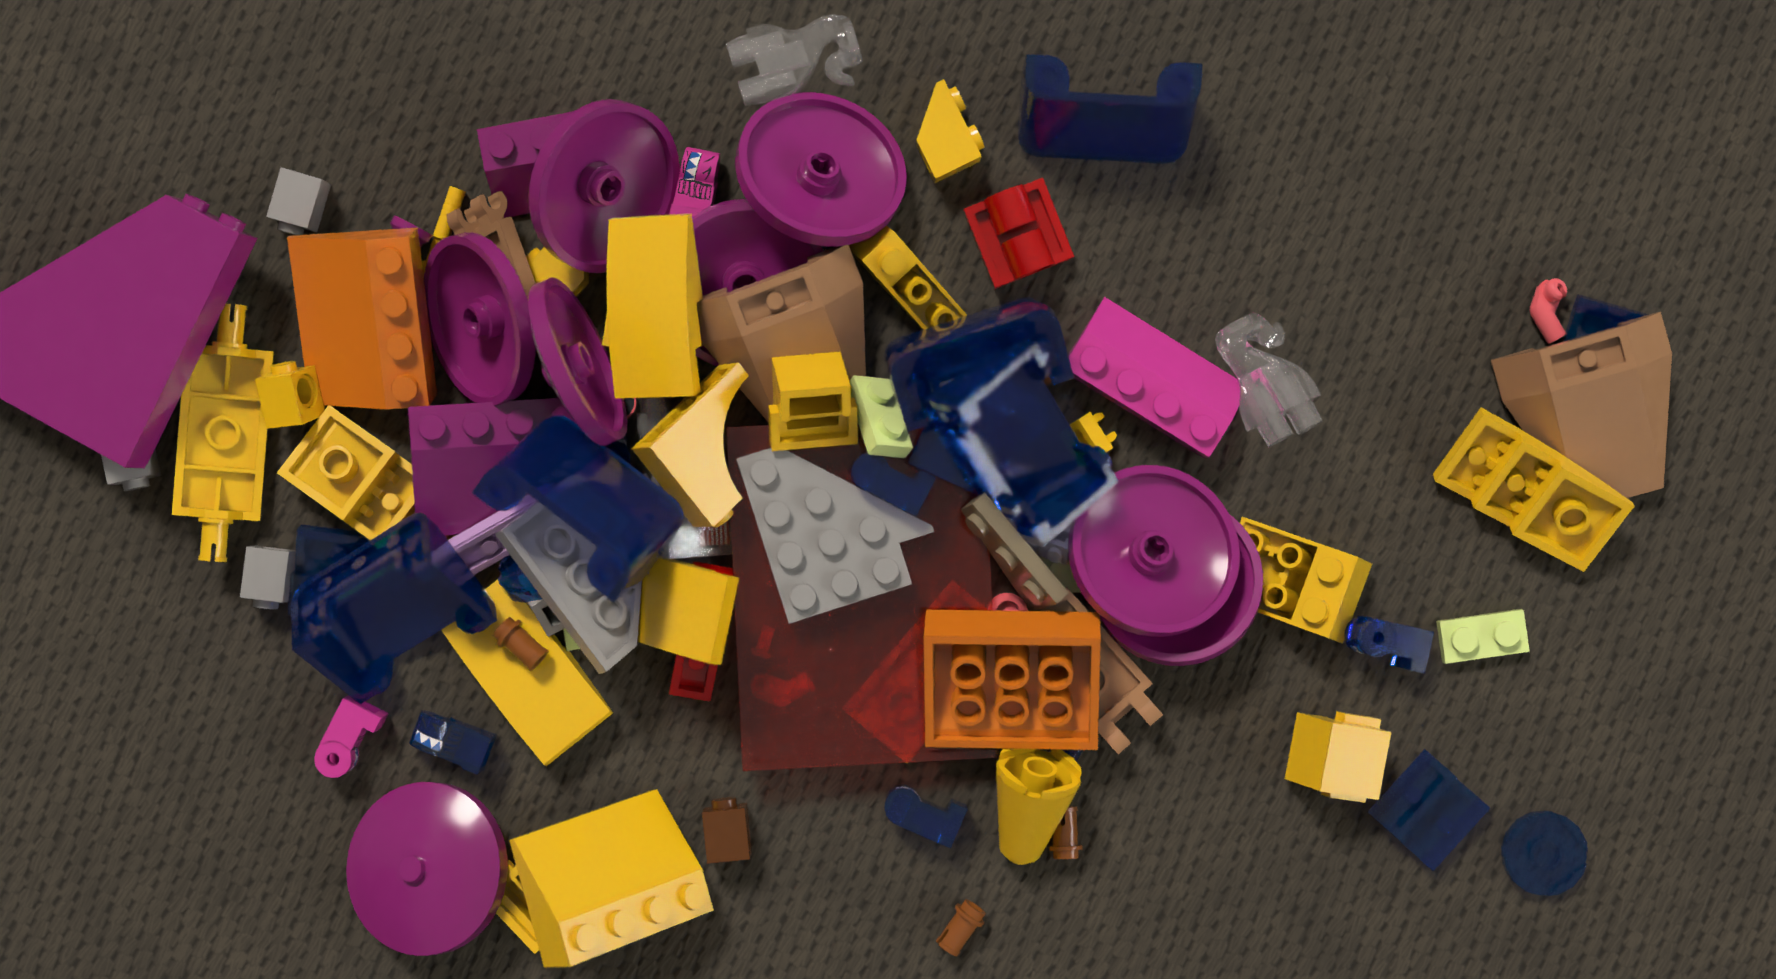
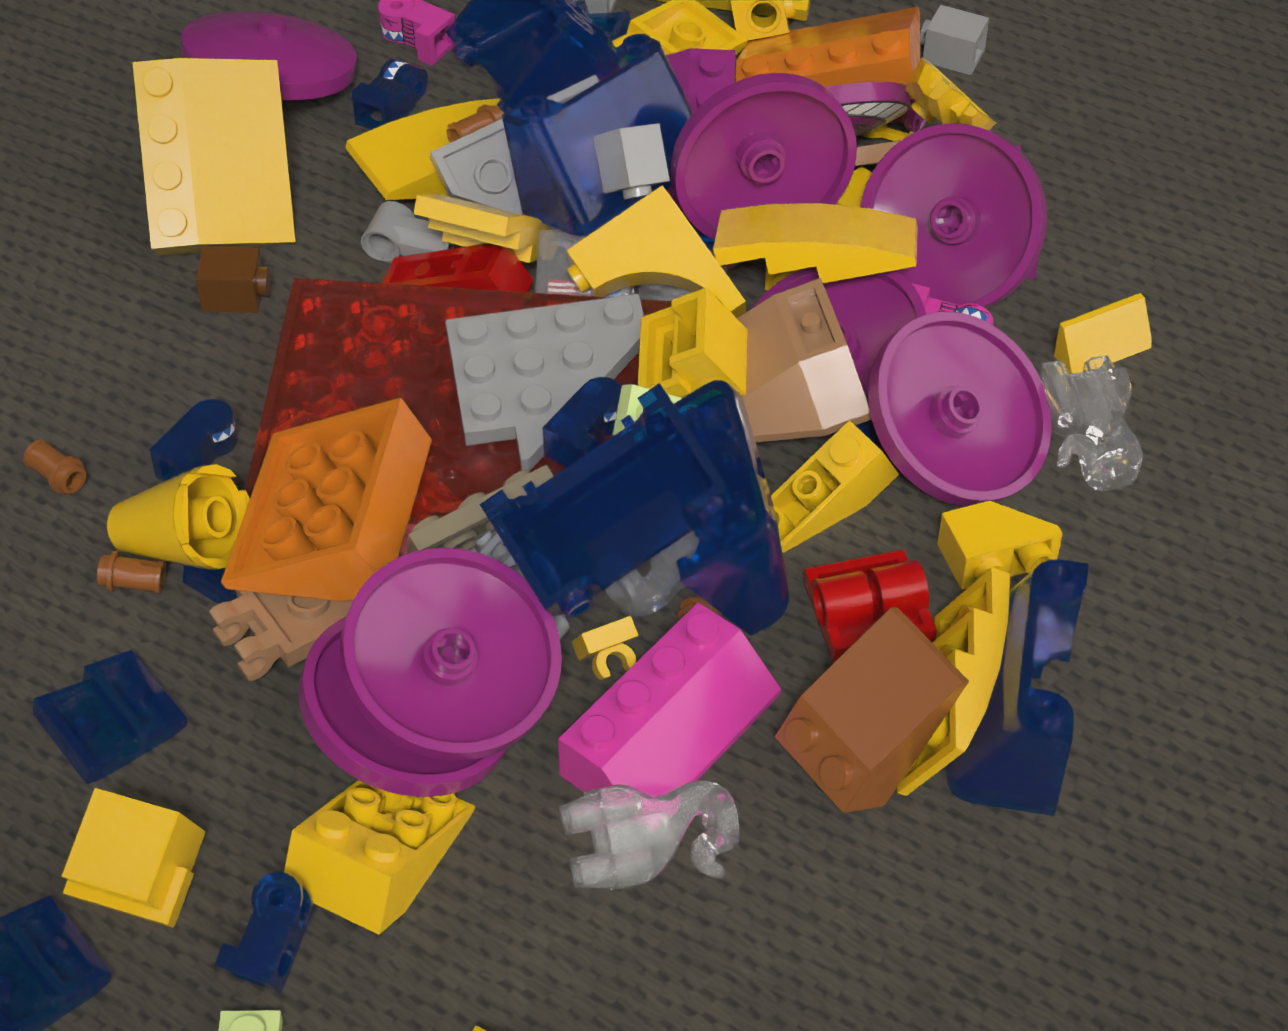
camera: 100 degrees right, 40 degrees down
(488, 193) = (942, 100): none -> yellow plate
(629, 478) = (631, 160): none -> light grey brick
(646, 692) = (398, 232): none -> light grey piece
(690, 48) = (1111, 330): none -> yellow slope
(1110, 156) = (973, 640): none -> yellow slope
(1162, 220) = (872, 713): none -> dark orange slope
(1201, 813) = (109, 716): none -> clear blue slope

